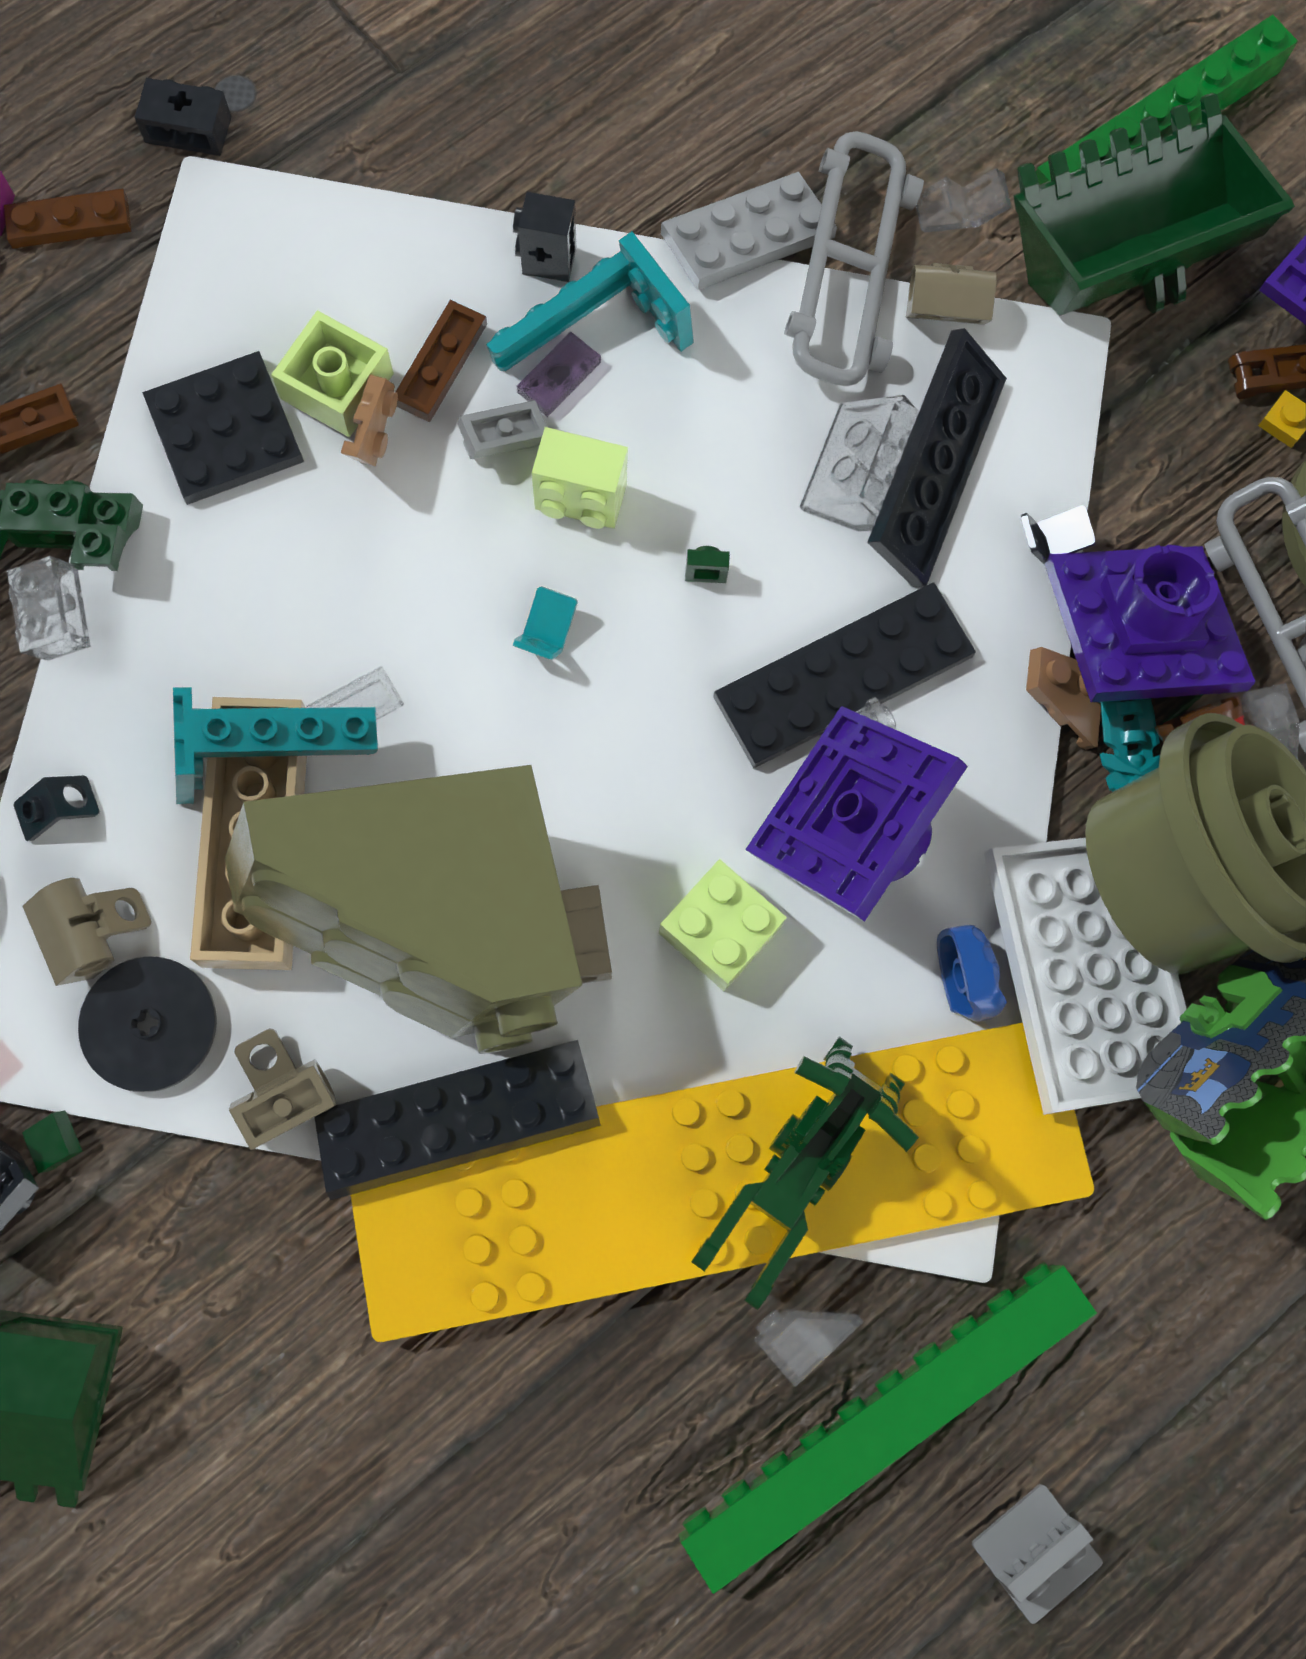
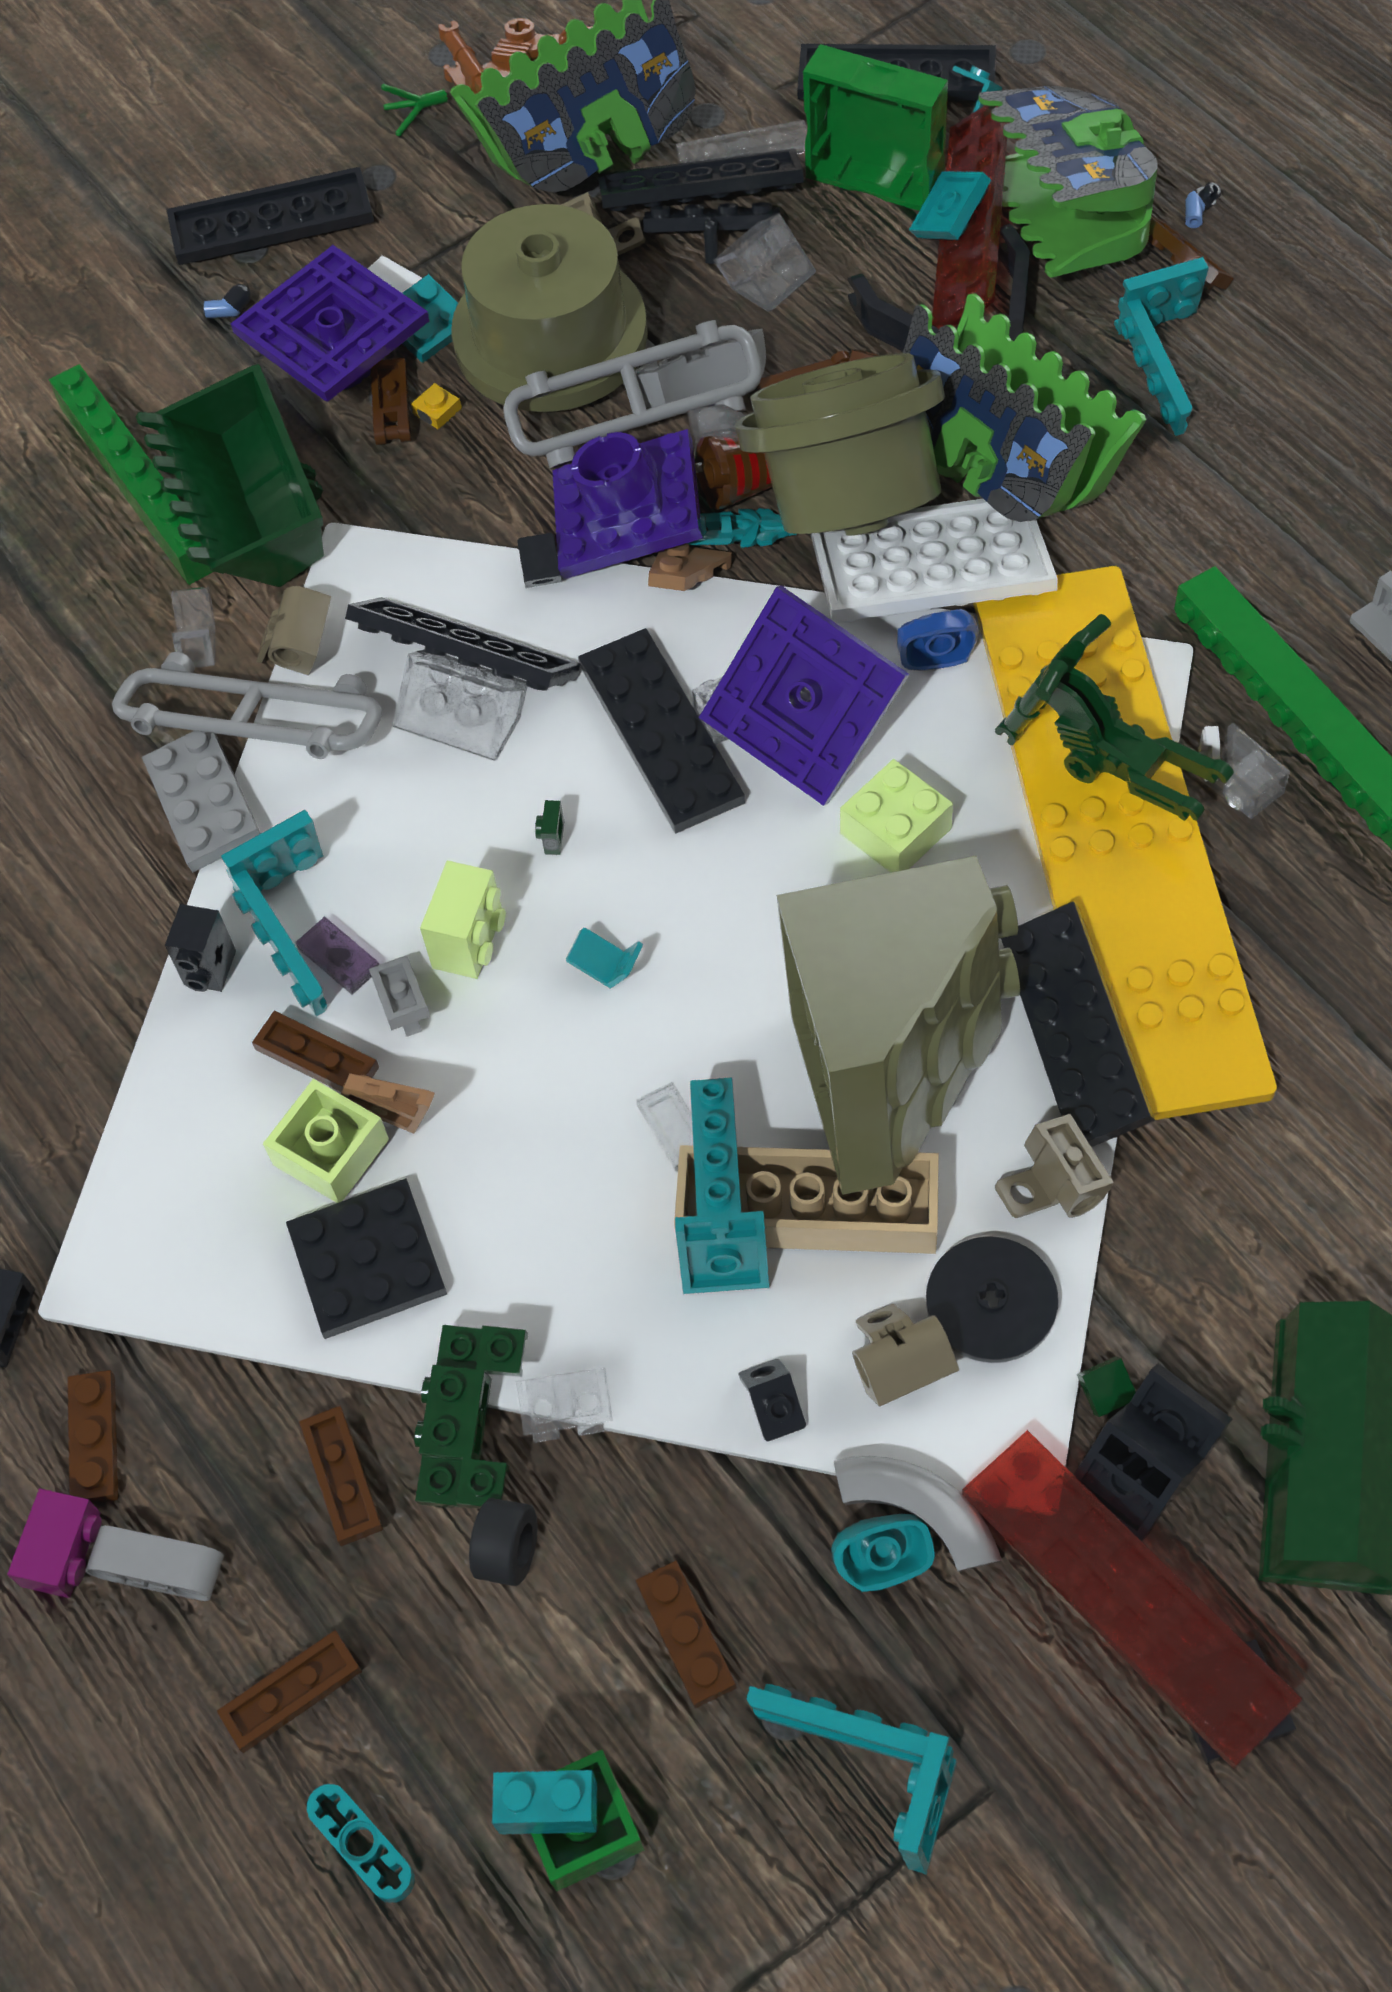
camera: 75 degrees left, 15 degrees down
(831, 1294) = (1210, 743): none -> white tile

